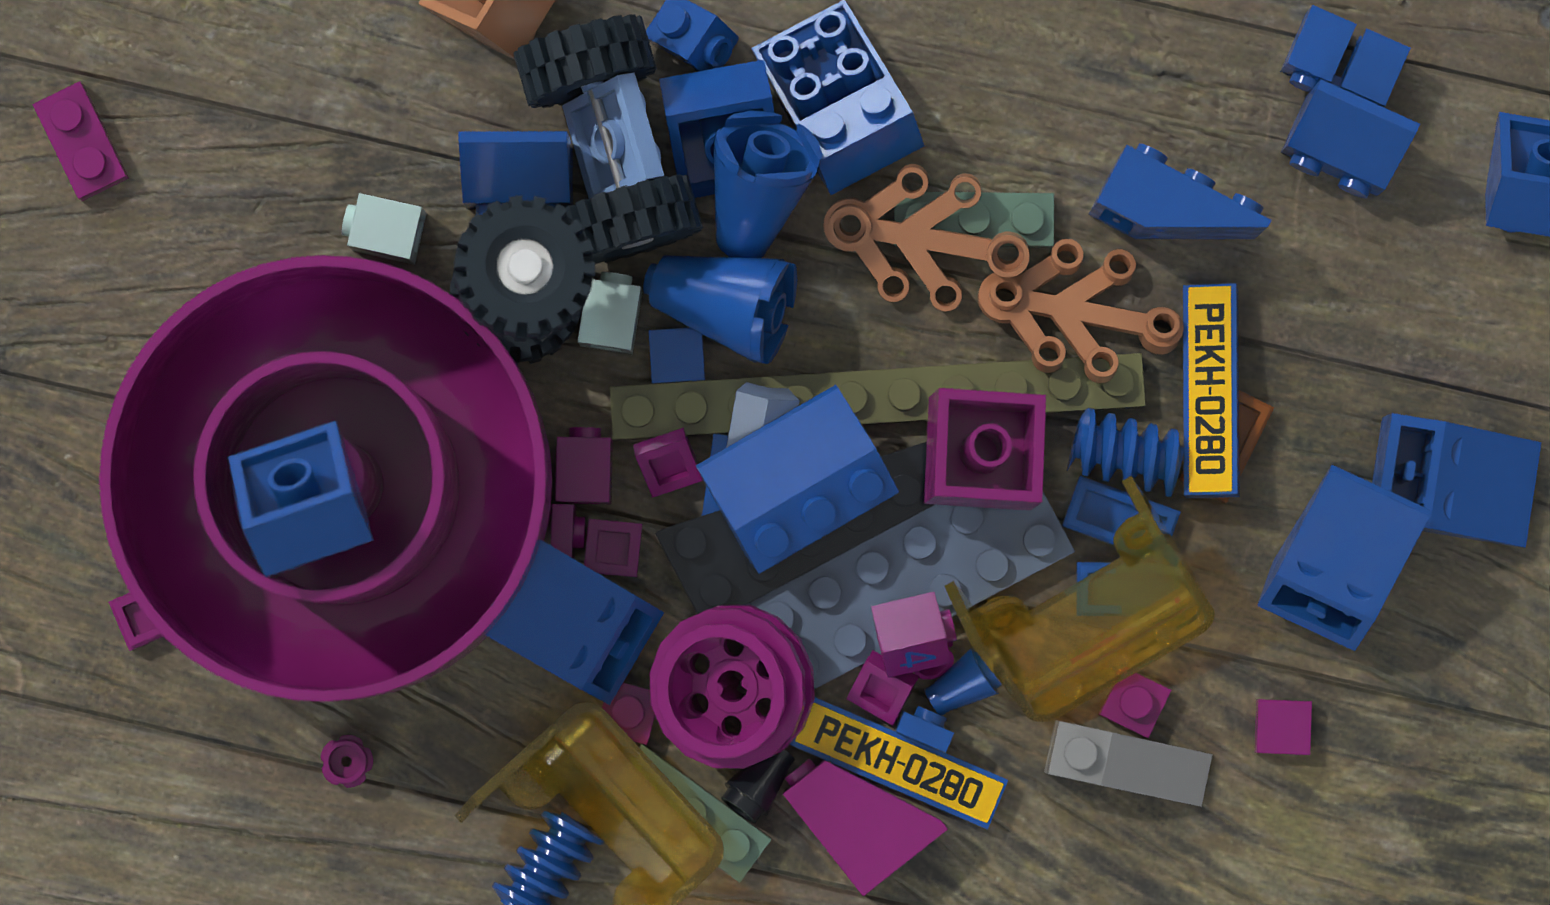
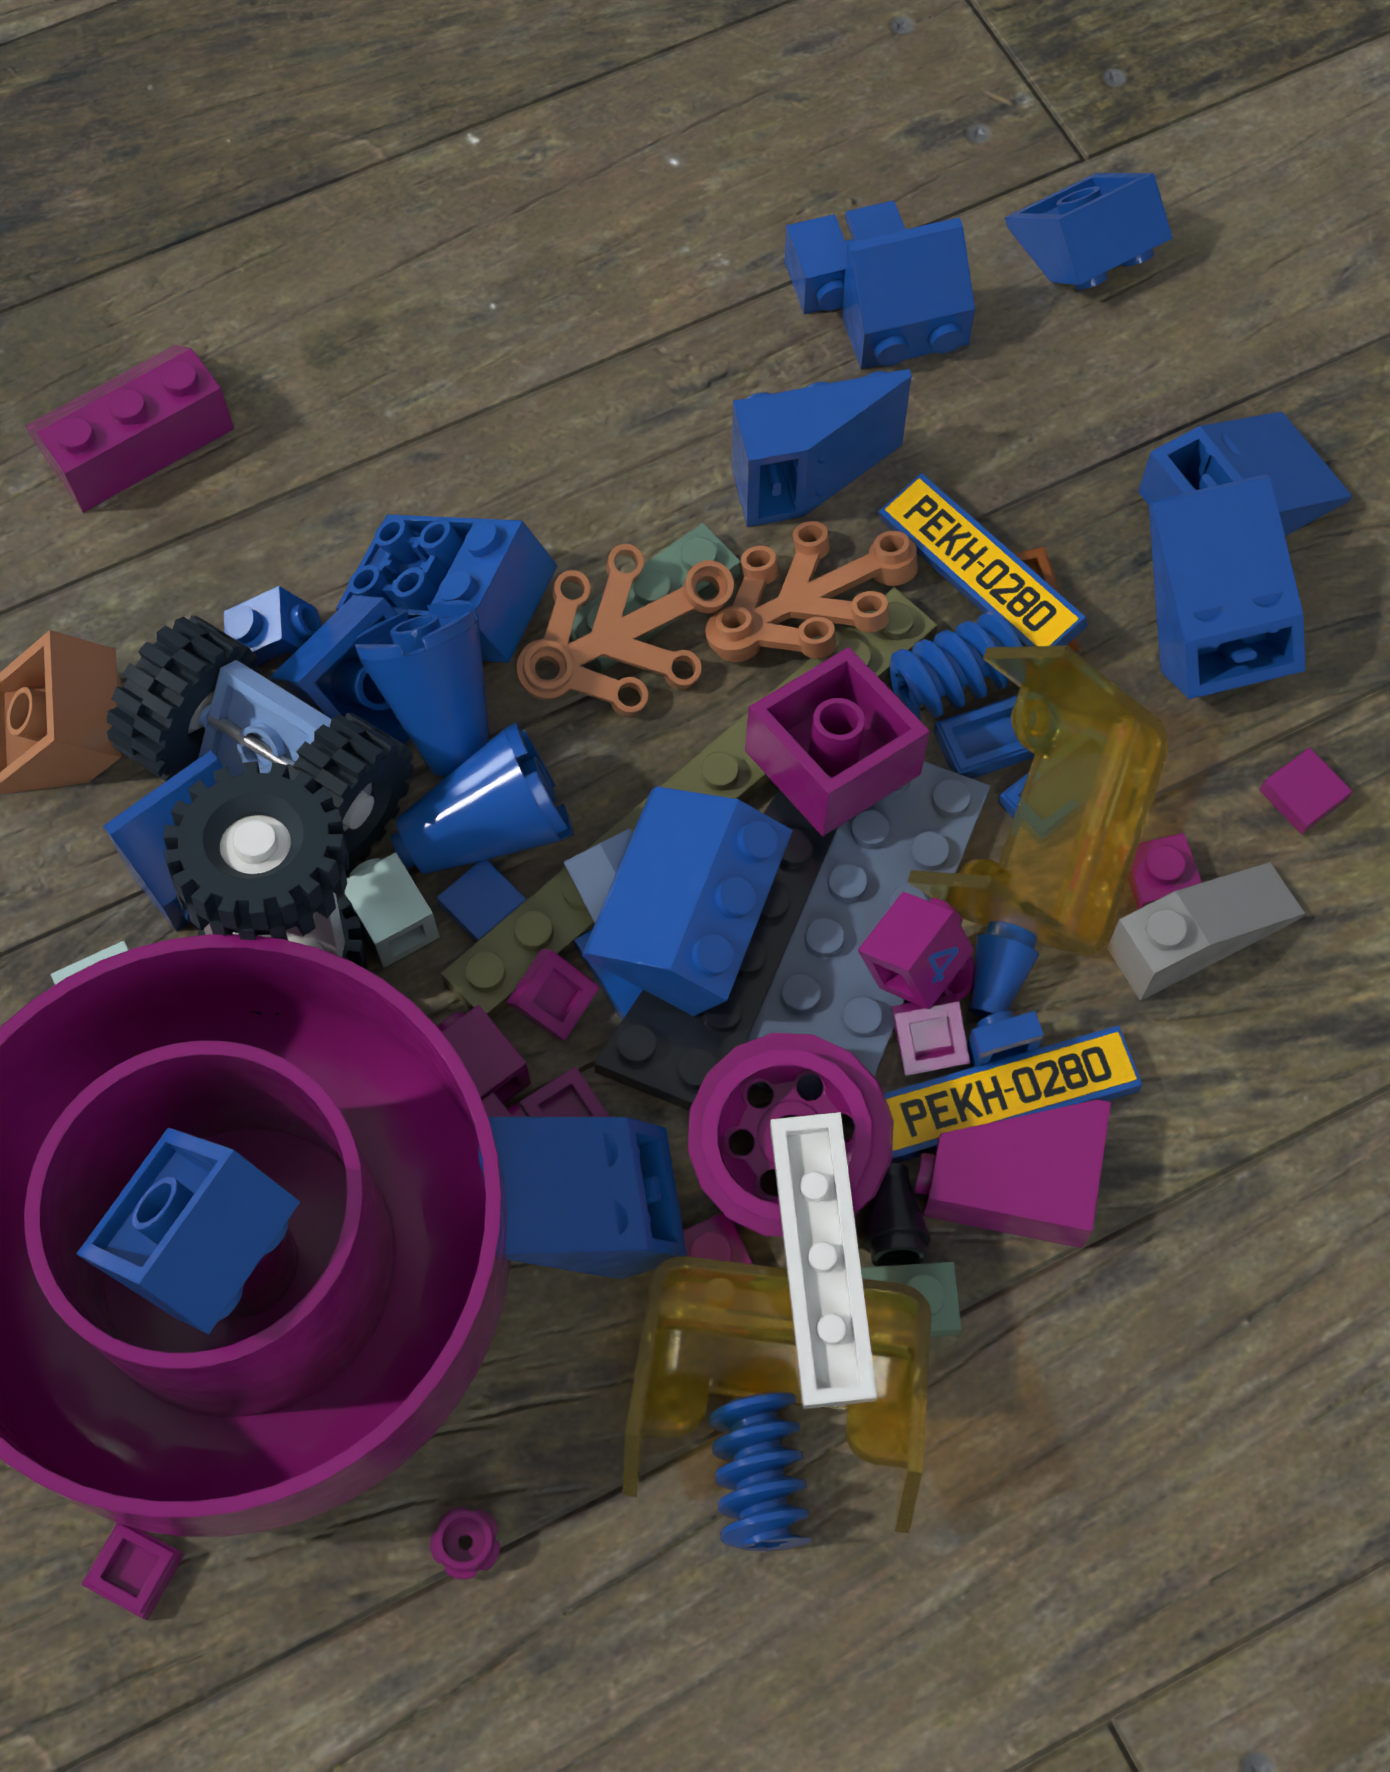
camera: 40 degrees left, 20 degrees down
(673, 787) = (822, 1261): none -> white plate

